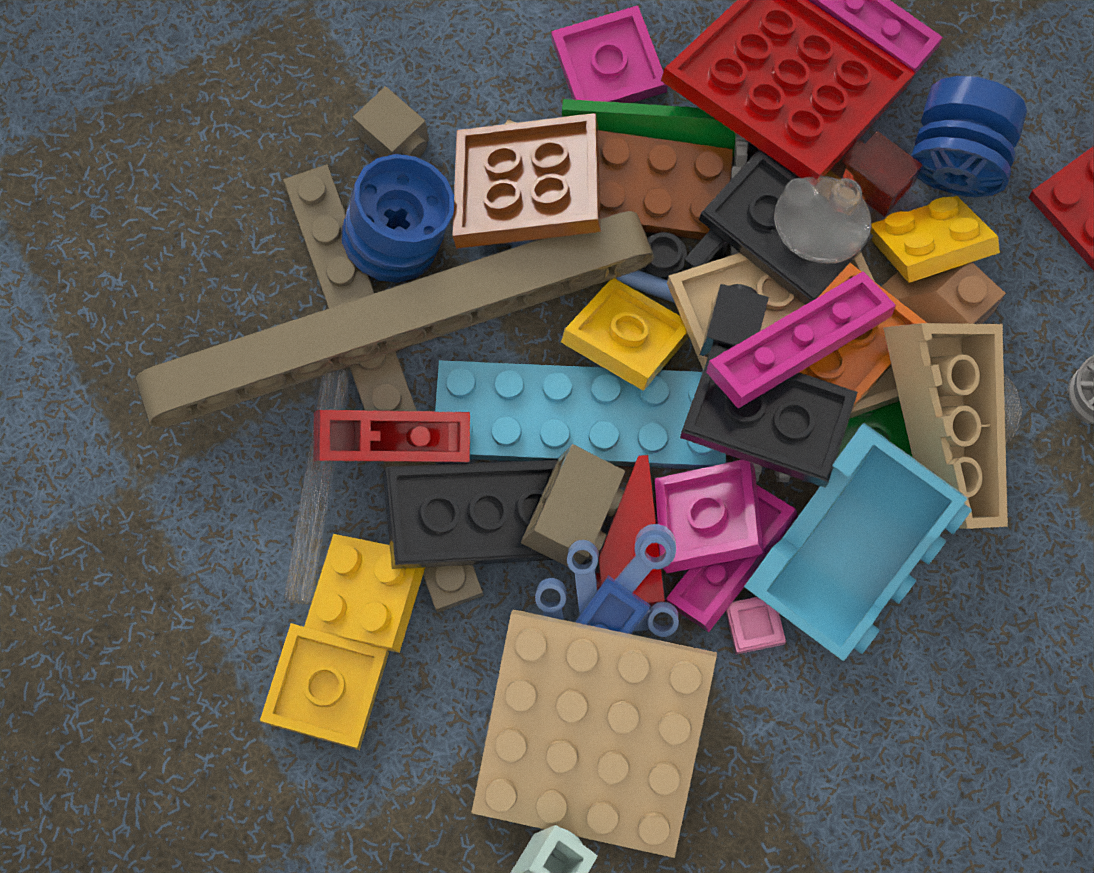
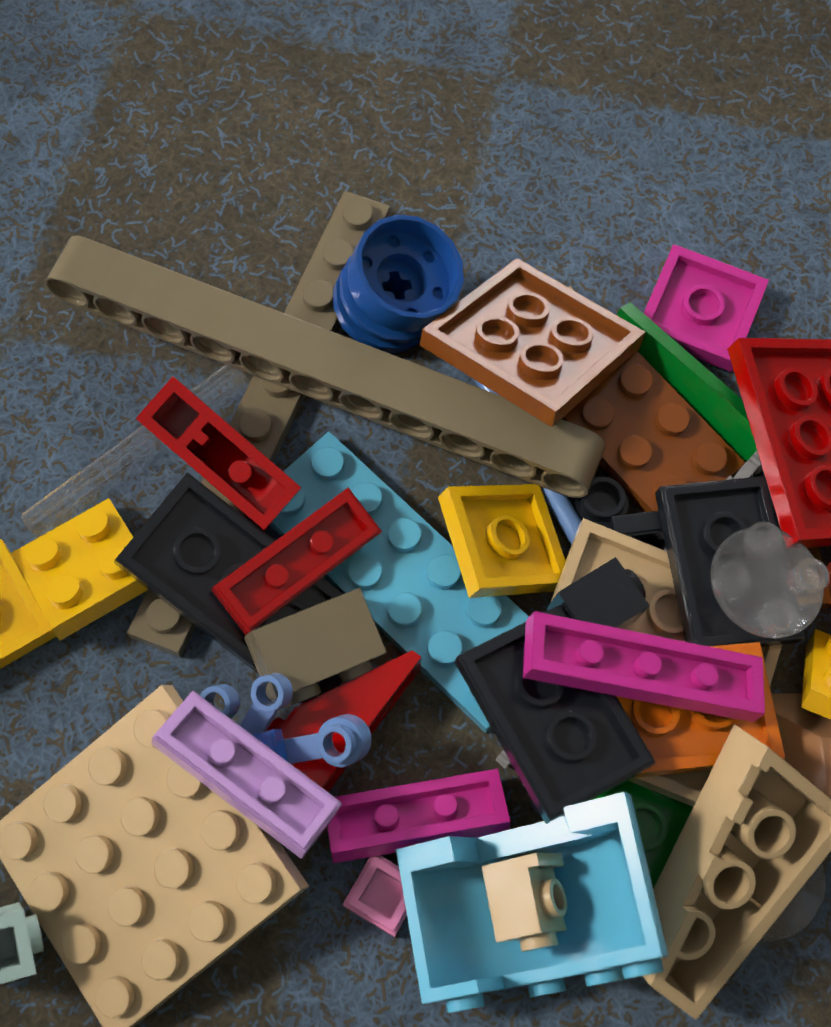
camera: 35 degrees right, 5 degrees down
(391, 126) = (468, 216): dark tan brick -> none
(509, 463) = (296, 561): none -> red tile
(619, 617) = (246, 774): none -> lavender tile
(710, 514) = (427, 759): dark pink plate -> none
(848, 546) = (526, 900): none -> tan brick

